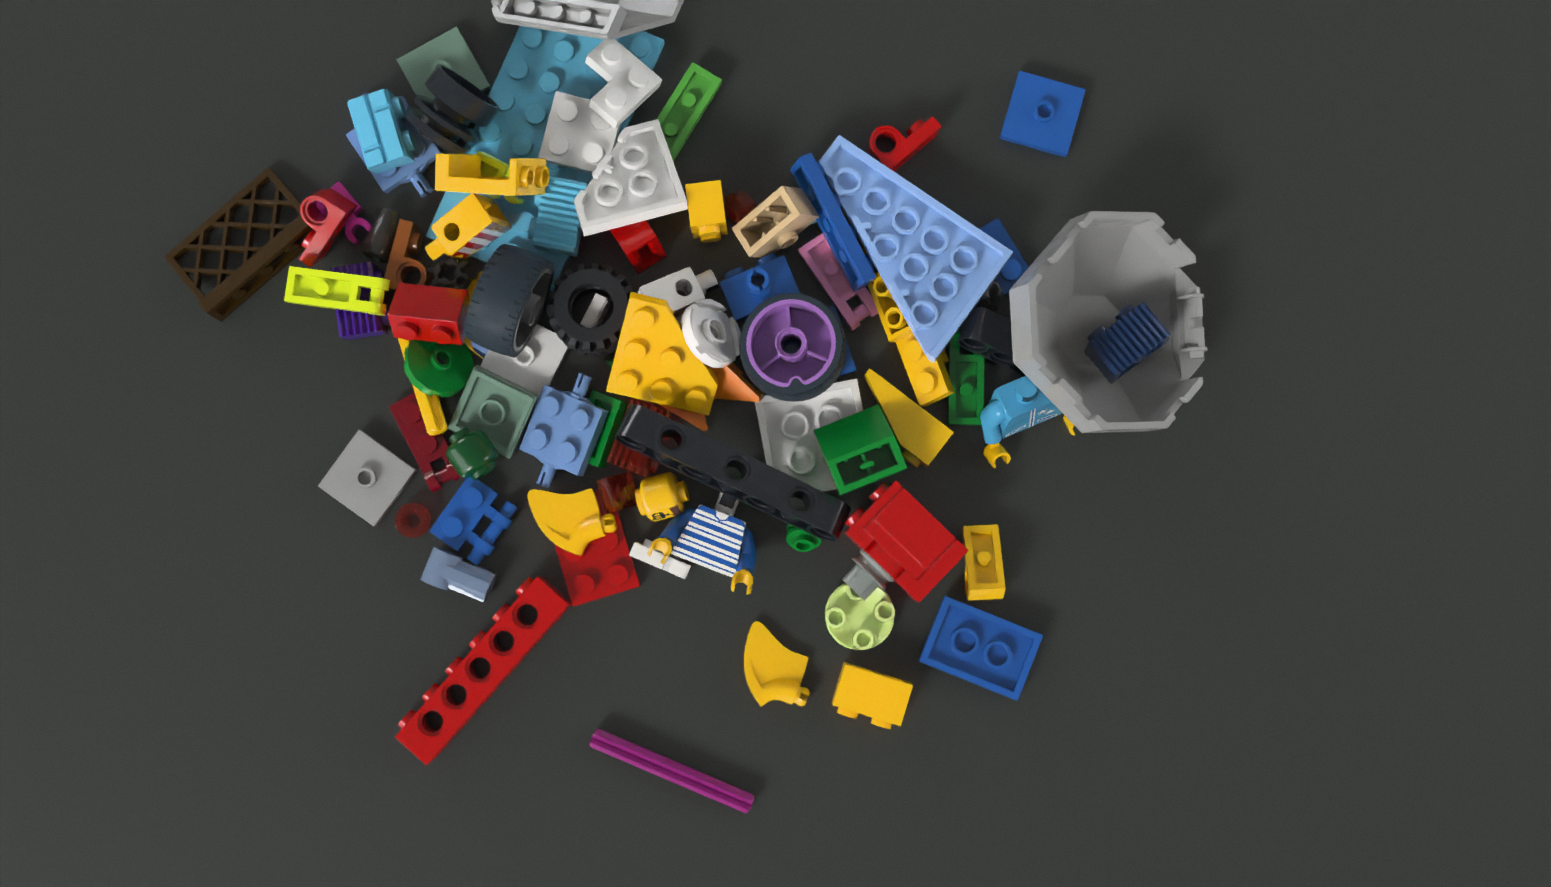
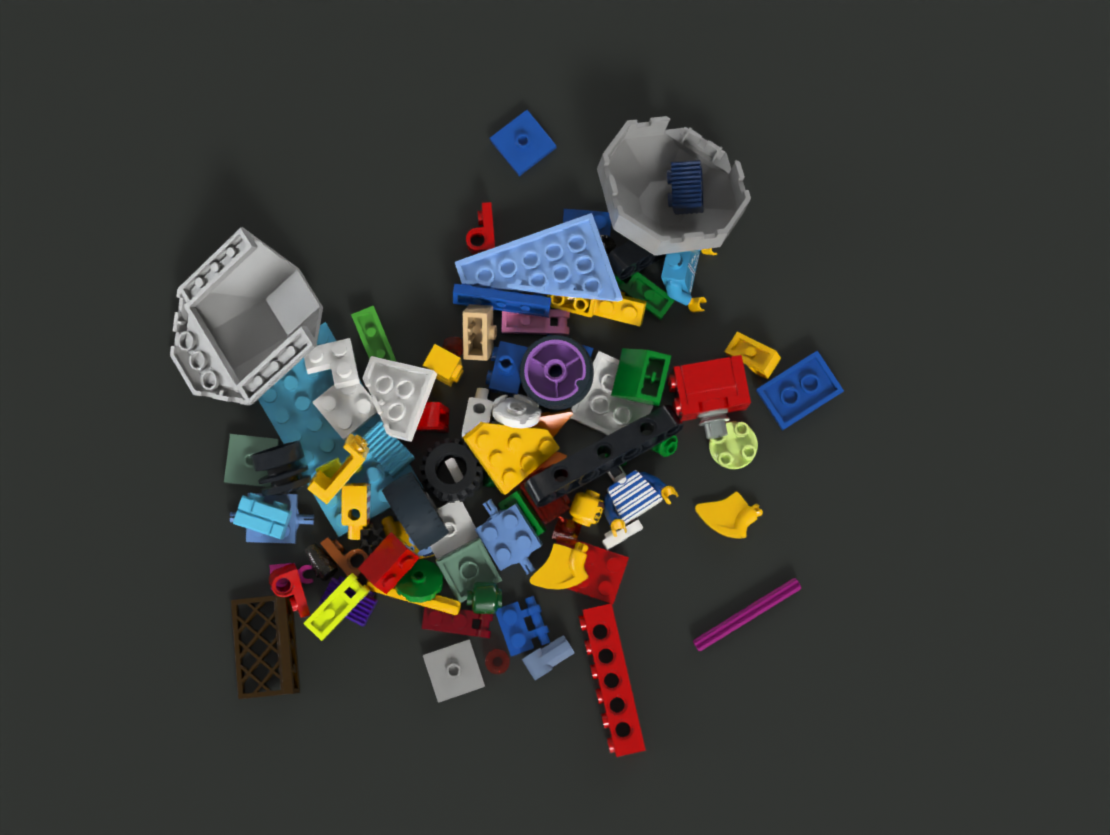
camera: 60 degrees left, 5 degrees down
(871, 695) = (783, 469): yellow brick -> none
(913, 427) = (652, 336): yellow slope -> none

